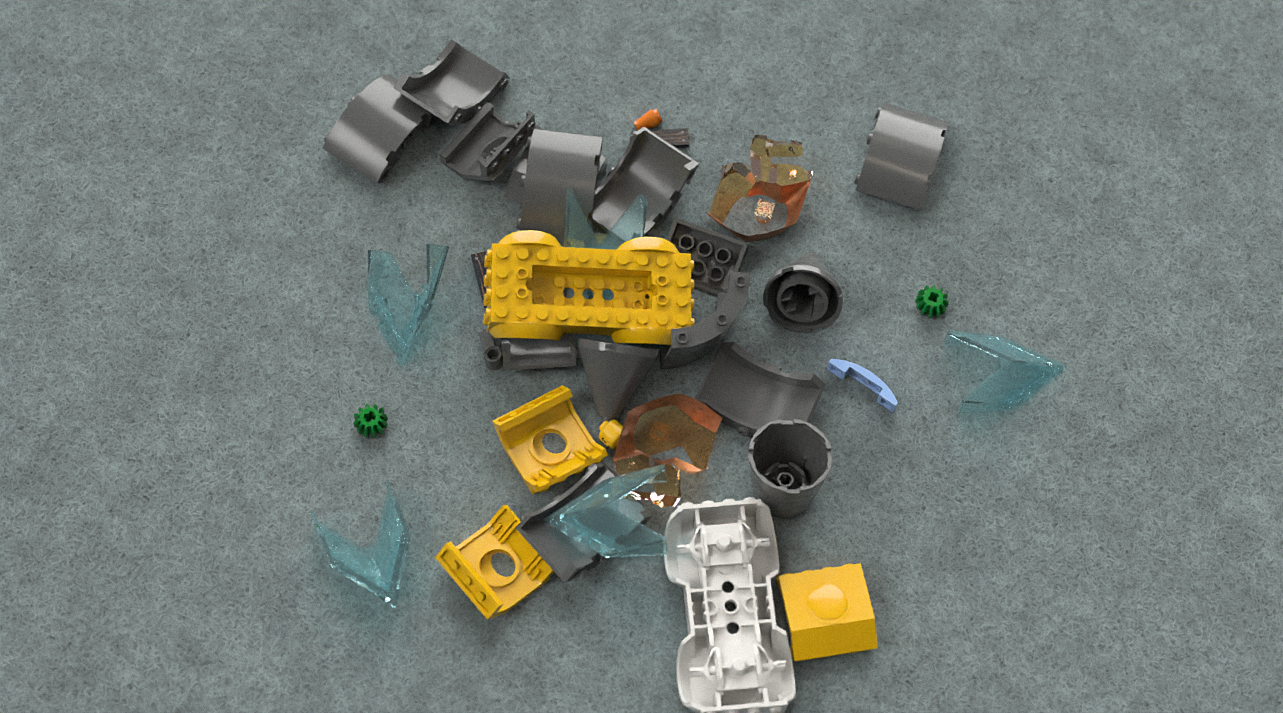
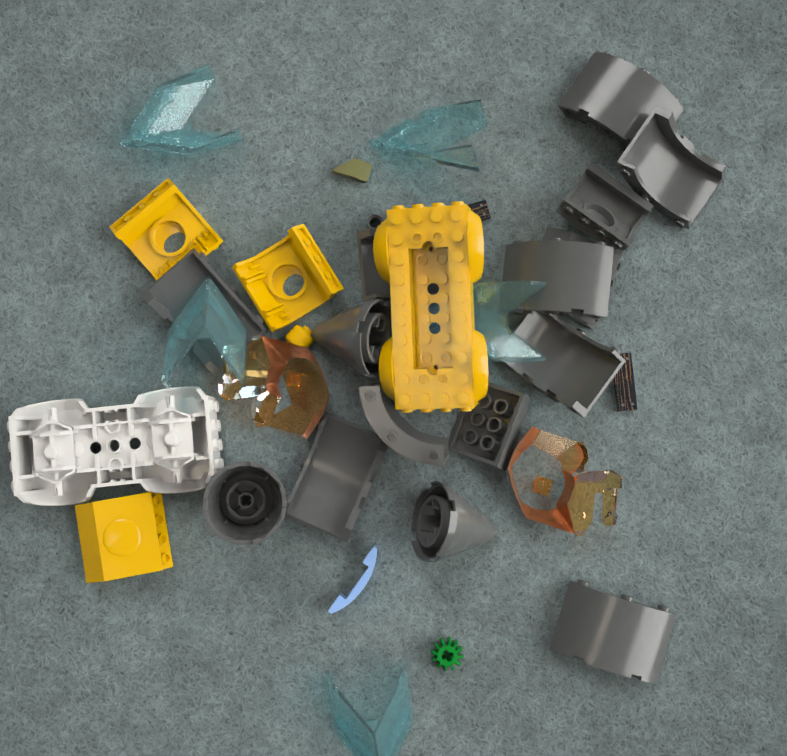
camera: 95 degrees right, 20 degrees up
(374, 425) = (303, 122): green gear -> none
(431, 378) = (354, 169): none -> olive slope
(648, 120) = (643, 369): orange cone -> none

